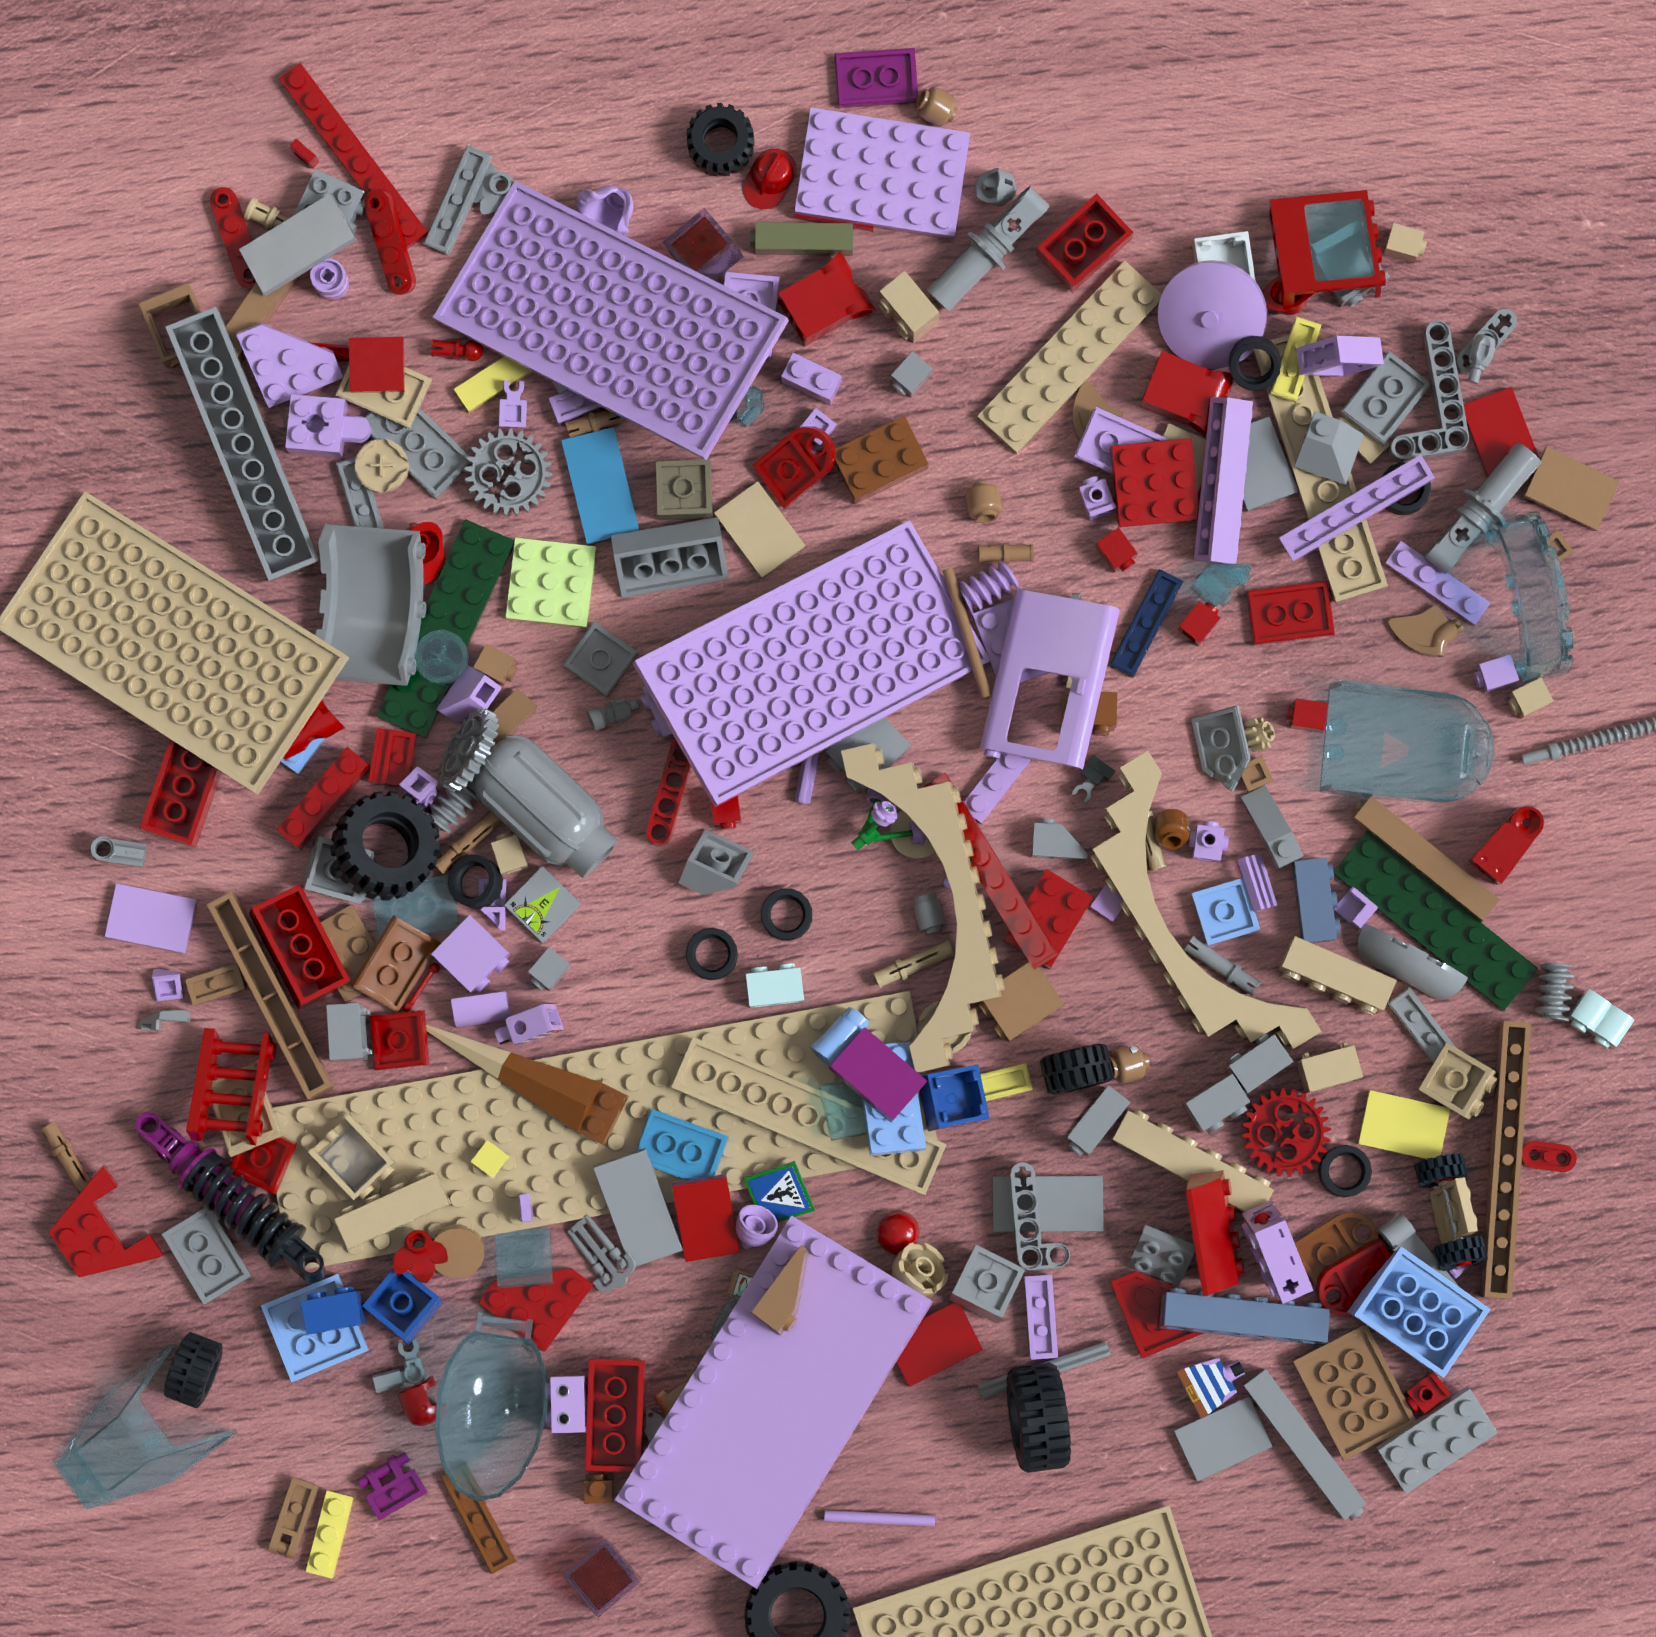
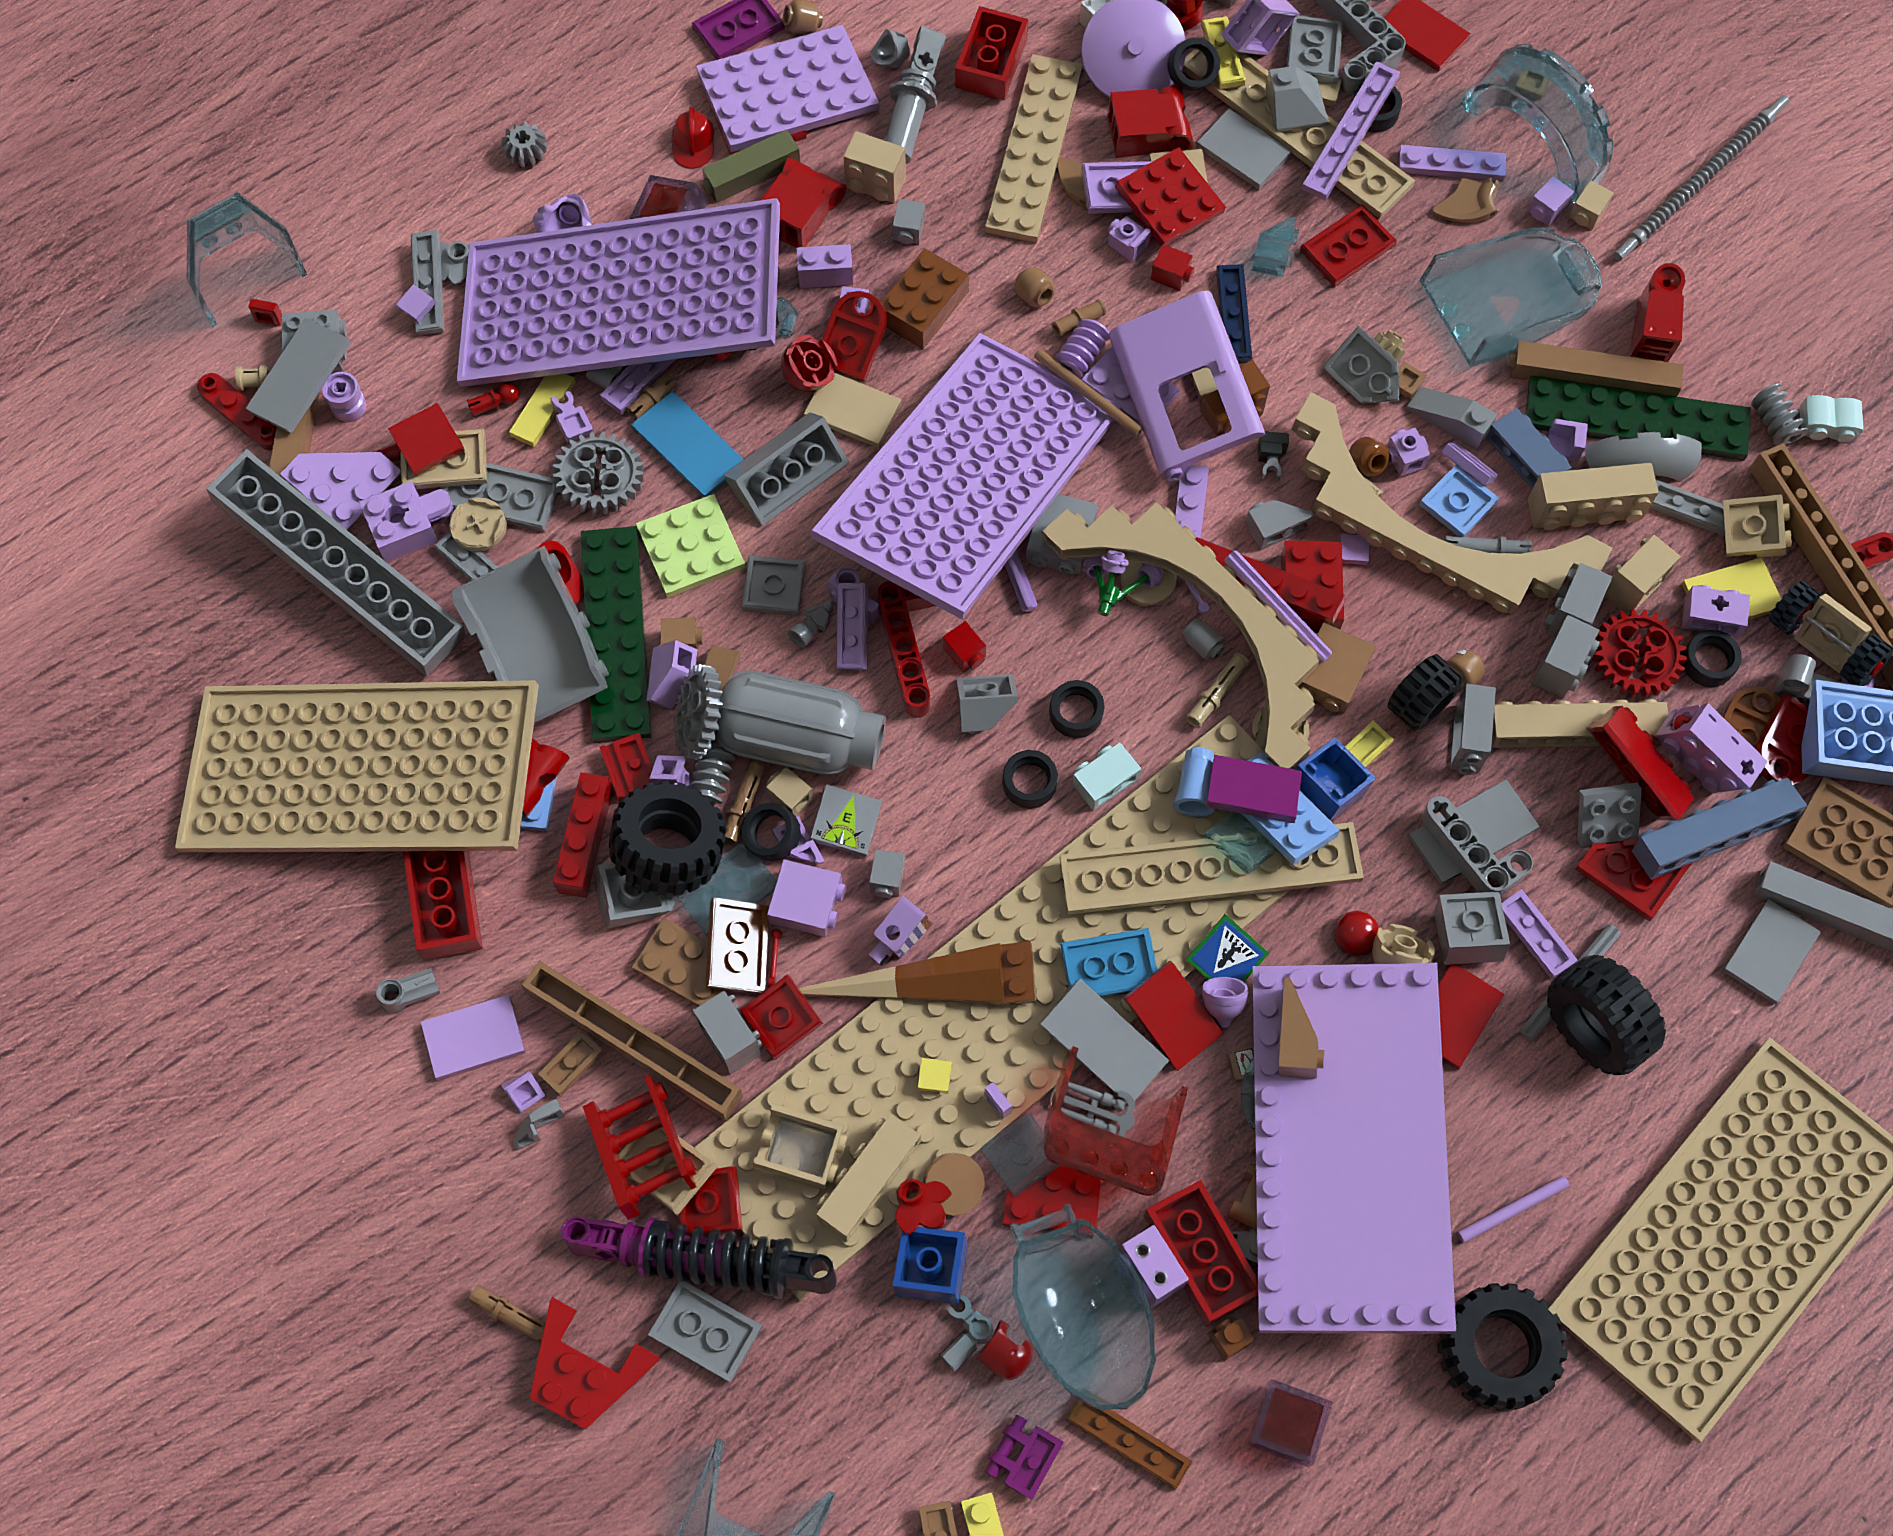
camera: 35 degrees left, 15 degrees down
(160, 304) = (196, 494): medium nougat window -> none
(193, 1370) = (756, 1451): black tyre -> none
(299, 85) = (224, 224): none -> clear light blue windscreen
(299, 946) = (634, 980): red slope -> none
(311, 1352) = (855, 1341): light blue plate -> none
(333, 1312) = (867, 1305): blue brick -> none
(348, 147) = (312, 295): red plate -> none
(390, 241) = (383, 342): red plate -> none
(436, 219) = (416, 303): none -> lavender tile
(441, 657) = (626, 651): clear light blue tile -> none
(480, 1009) = (843, 944): lavender brick -> none
(583, 1298) = (1106, 1154): none -> clear red windscreen
(625, 100) = (524, 144): none -> light grey gear
(639, 741) = (852, 626): none -> lavender tile
(684, 489) = (766, 404): dark tan container -> none
(714, 118) = (630, 108): black tyre -> none
(740, 472) = (808, 364): none -> red cylinder
(997, 928) = (1269, 597): none -> lavender axle
(1199, 622) = (1279, 287): red brick -> none
(1209, 1383) = (1727, 908): torso -> none
(1223, 480) = (1226, 164): lavender brick -> none
(1307, 715) = (1419, 311): red brick -> none
(1356, 1131) = (1716, 610): none -> lavender brick
(1484, 506) = (1451, 80): light grey piece -> none
(1571, 488) = (1494, 34): medium nougat tile -> none

